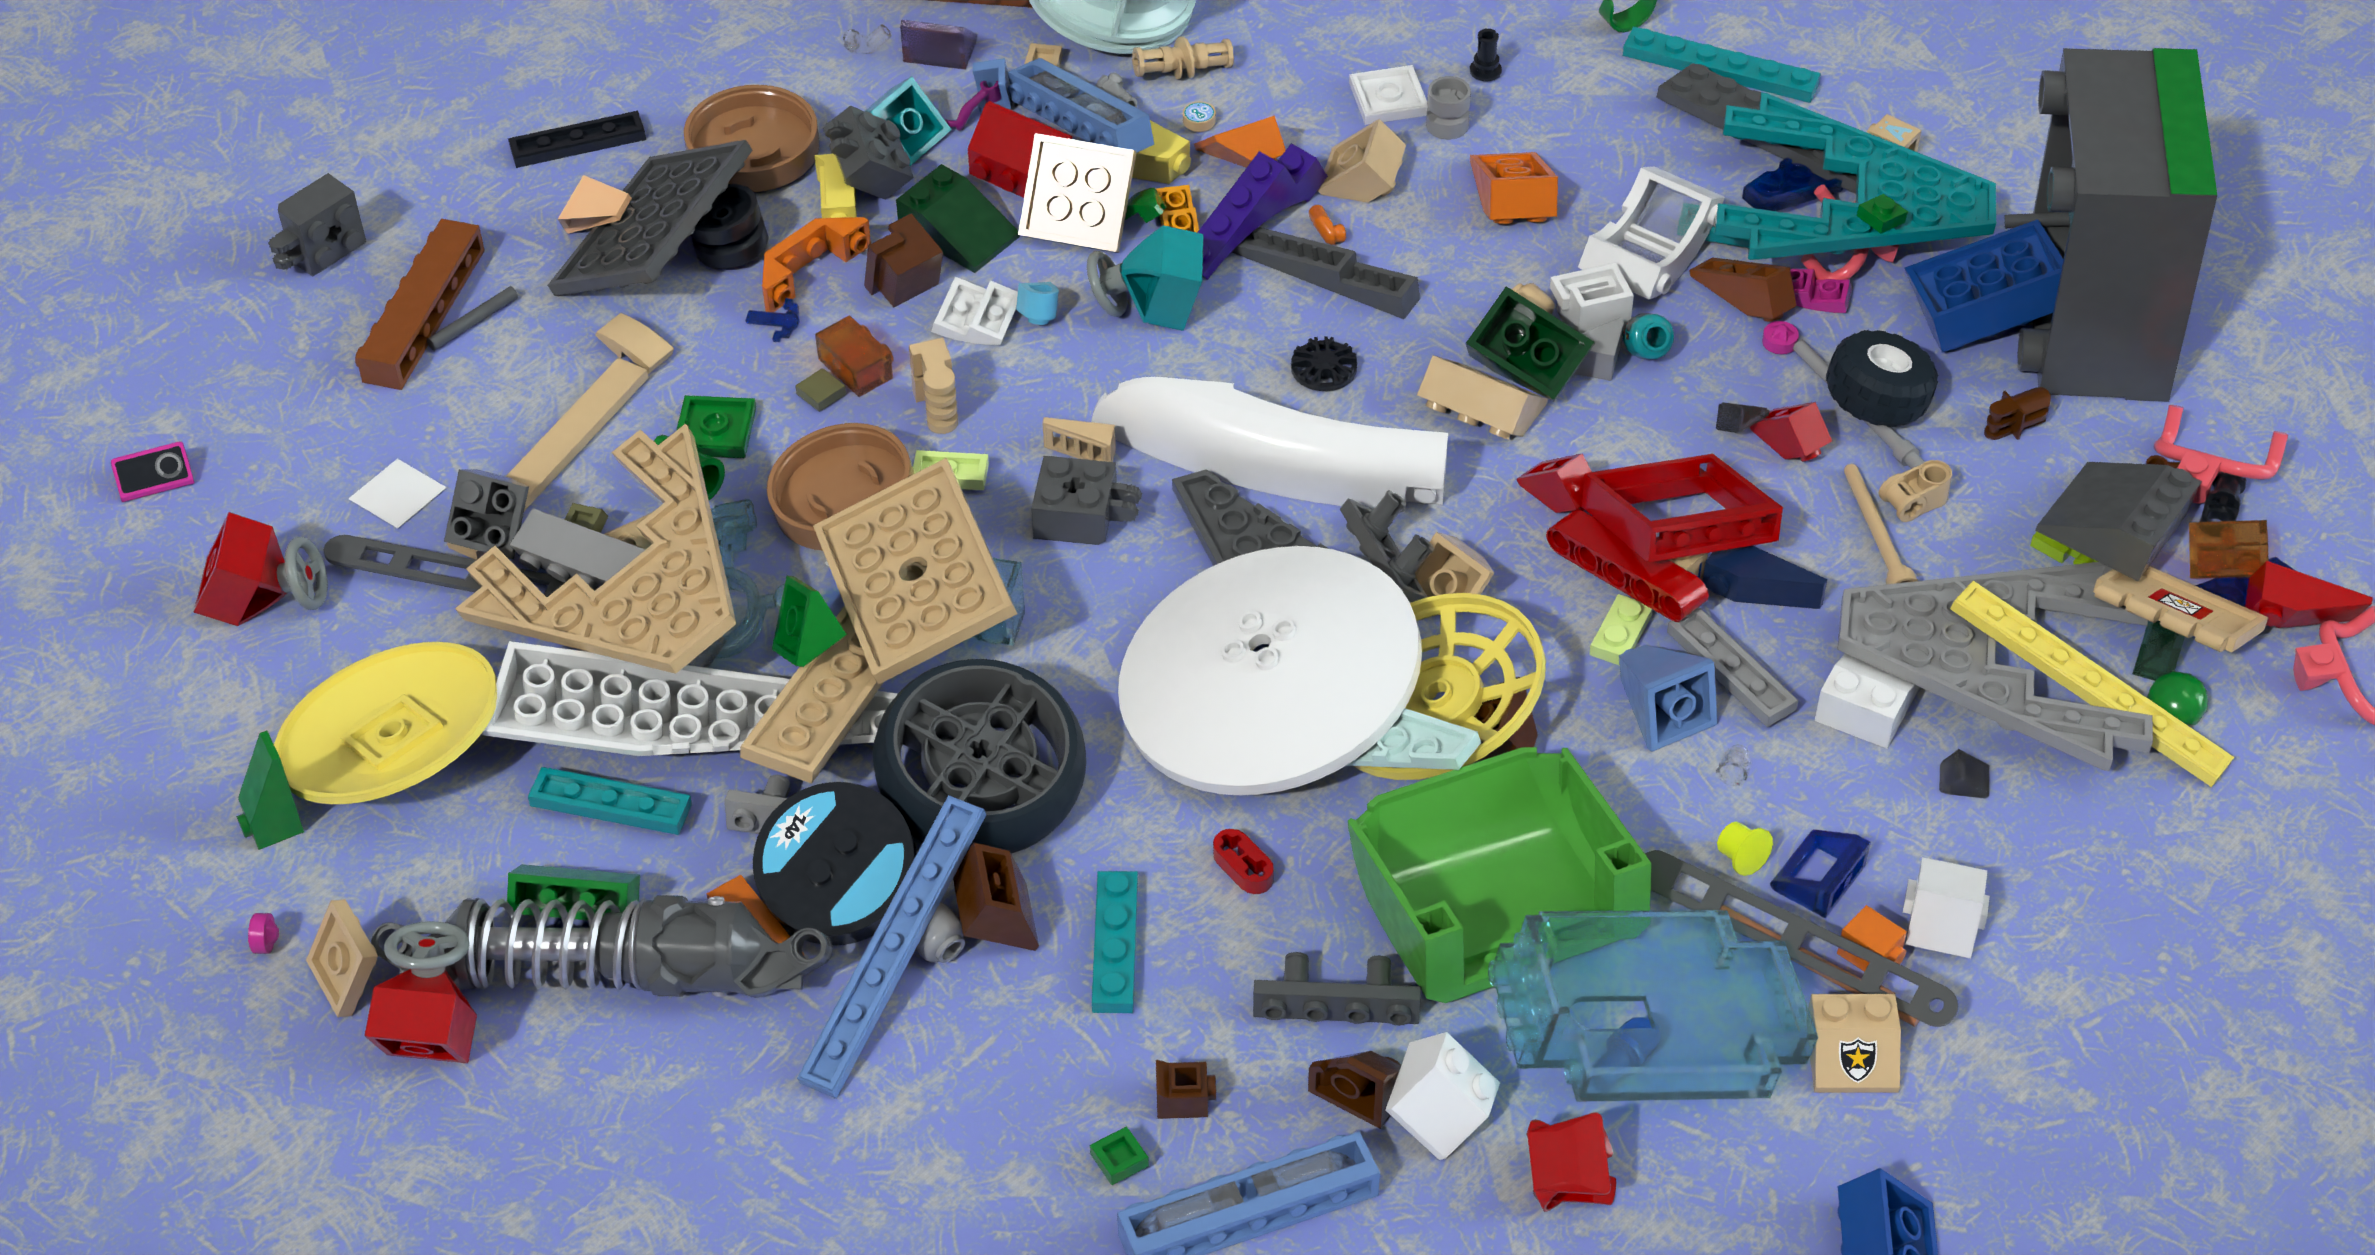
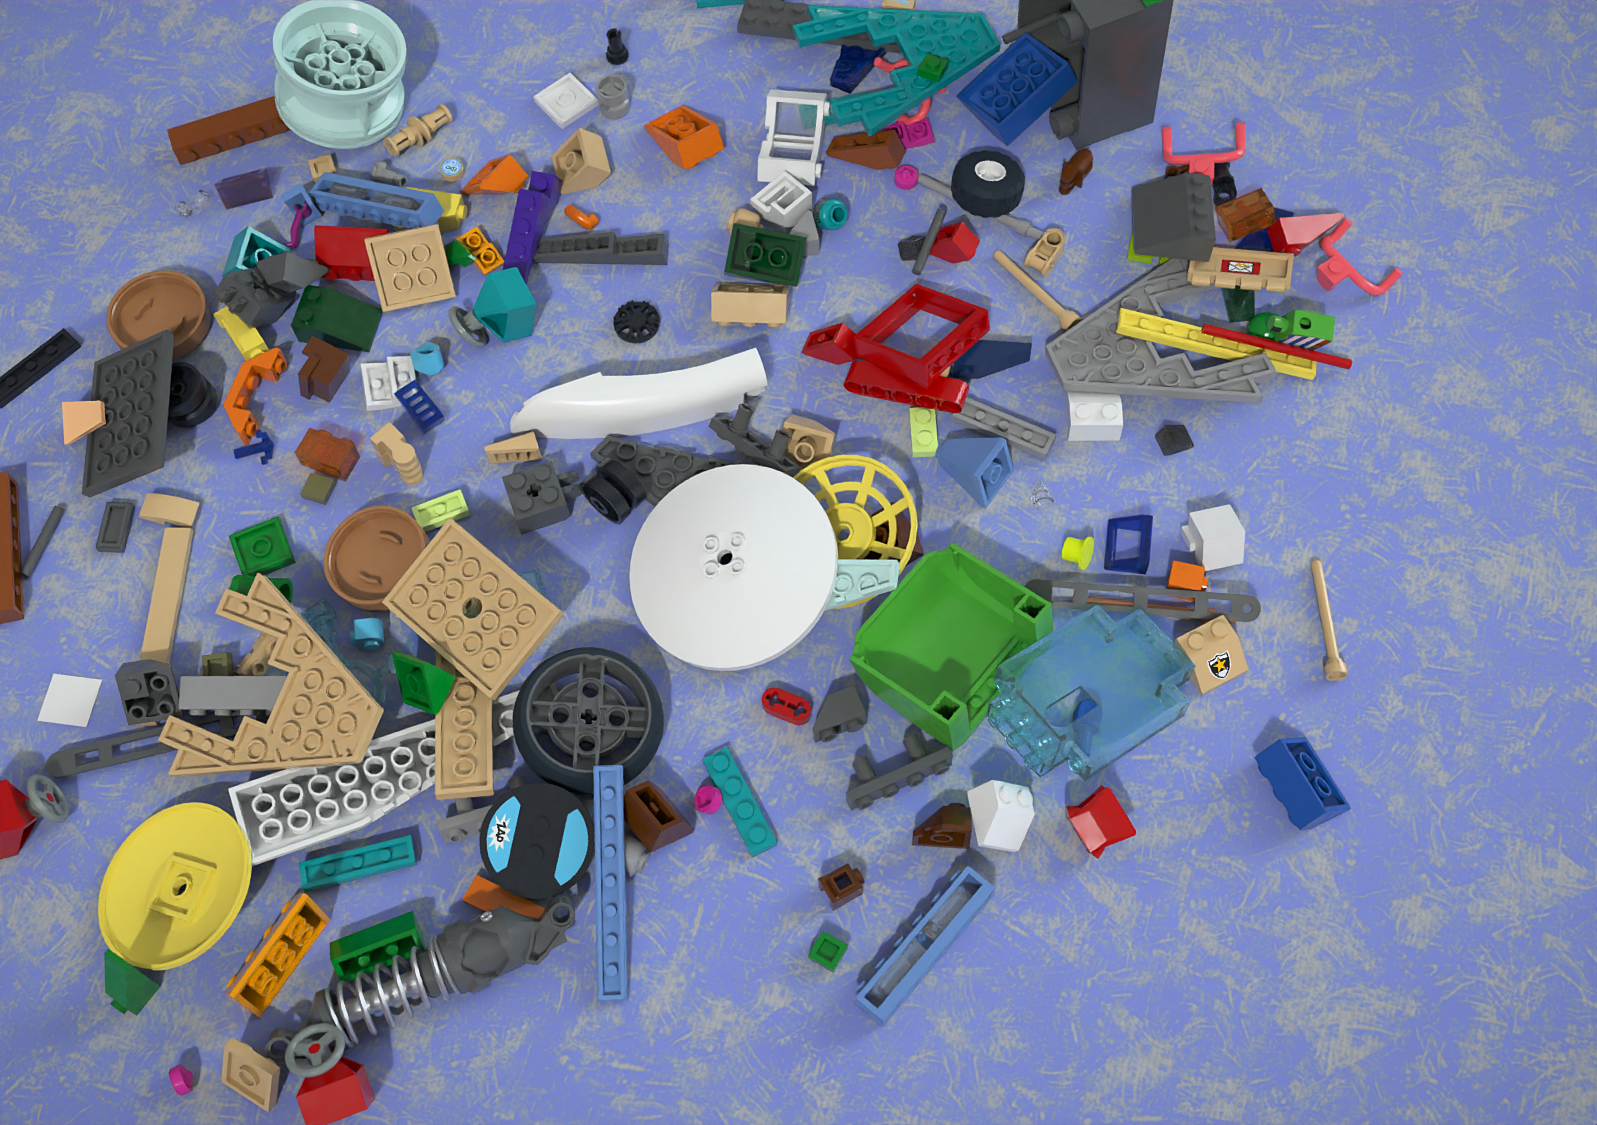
camera: 25 degrees left, 15 degrees up
(453, 844) = (277, 955): none -> light orange slope
(563, 336) = (115, 527): none -> dark grey tile
(777, 561) = (368, 634): none -> medium azure plate
(931, 140) = (290, 271): none -> dark grey slope
(1002, 371) = (431, 422): none -> clear blue slope
(1076, 918) = (708, 799): none -> dark pink tile
(1171, 526) = (613, 490): none -> black wheel
(1302, 896) = (839, 714): none -> dark grey slope
(1760, 414) = (928, 242): none -> dark grey bar
(2026, 1136) = (1335, 667): none -> tan piece
(2176, 718) = (1276, 346): none -> red piece
(2220, 707) = (1303, 329): none -> bright green torso

